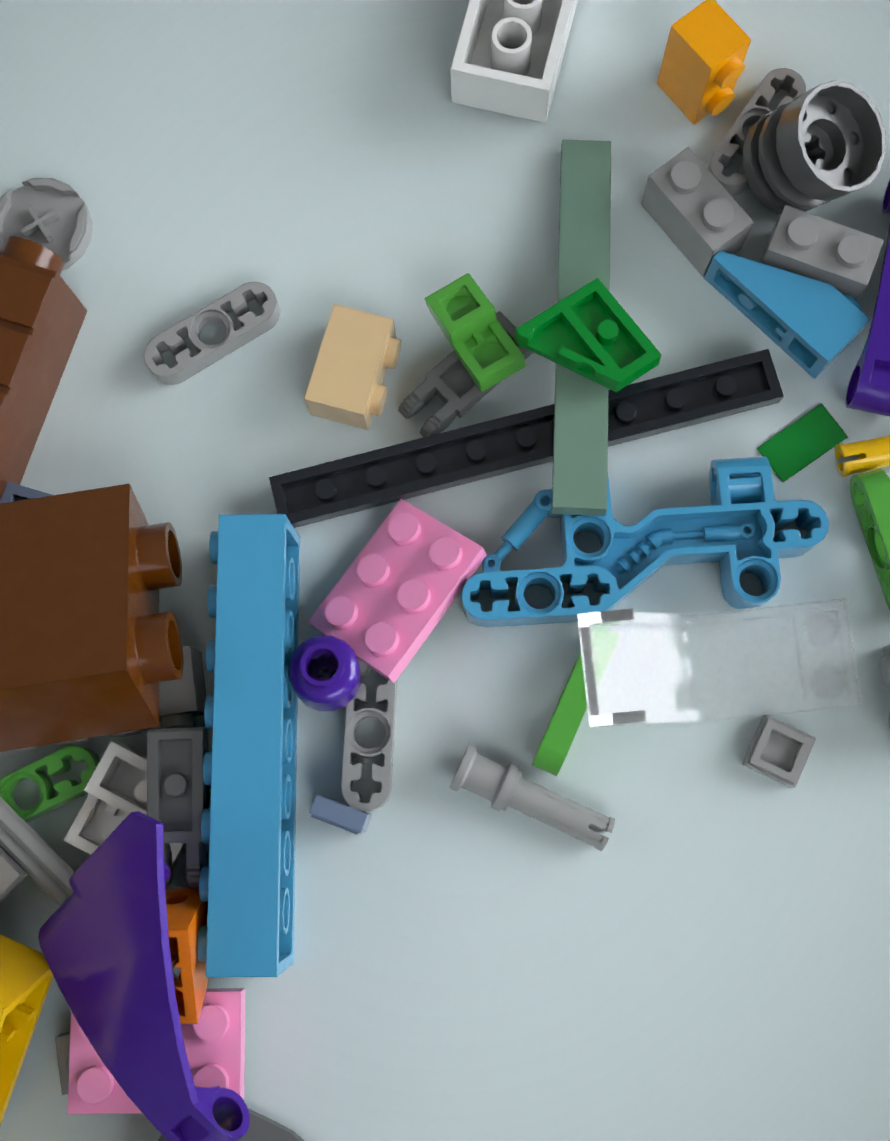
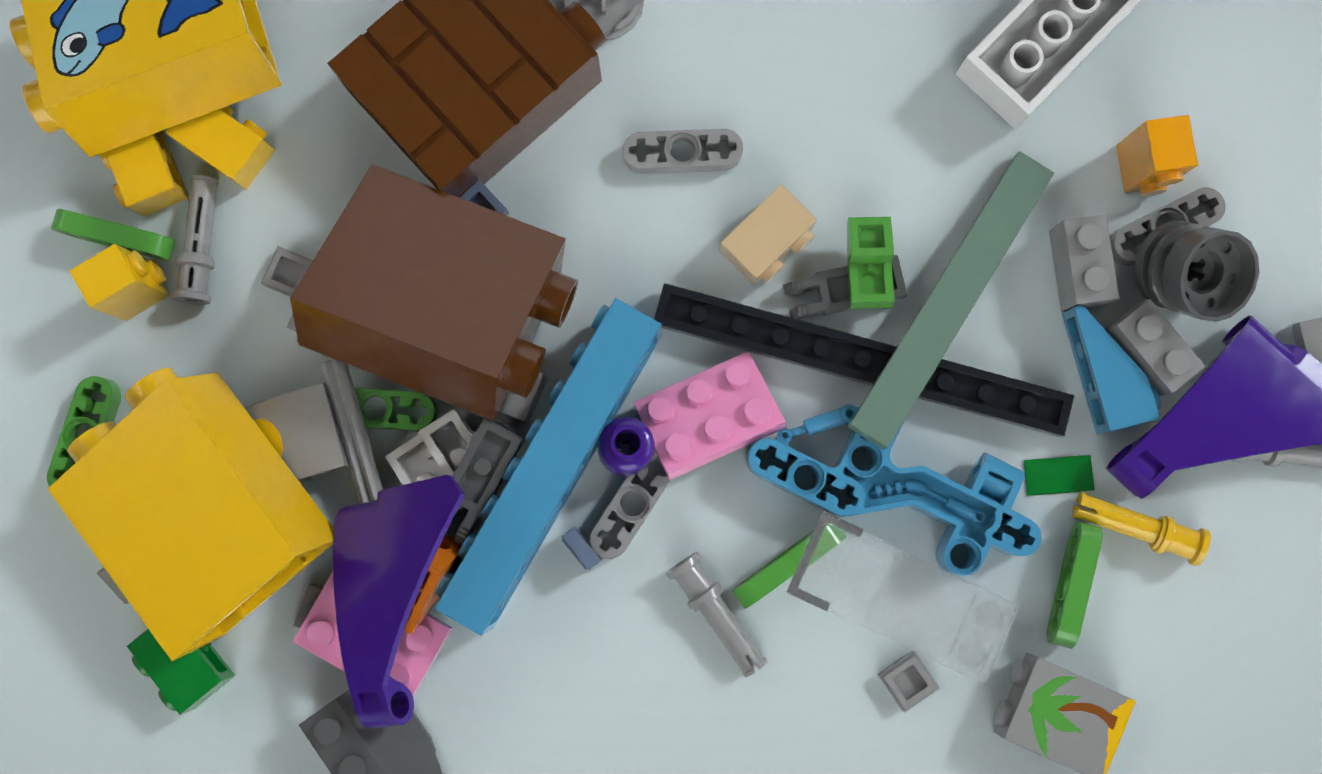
camera: 25 degrees right, 5 degrees up
(591, 337) = (950, 318): green wing -> none

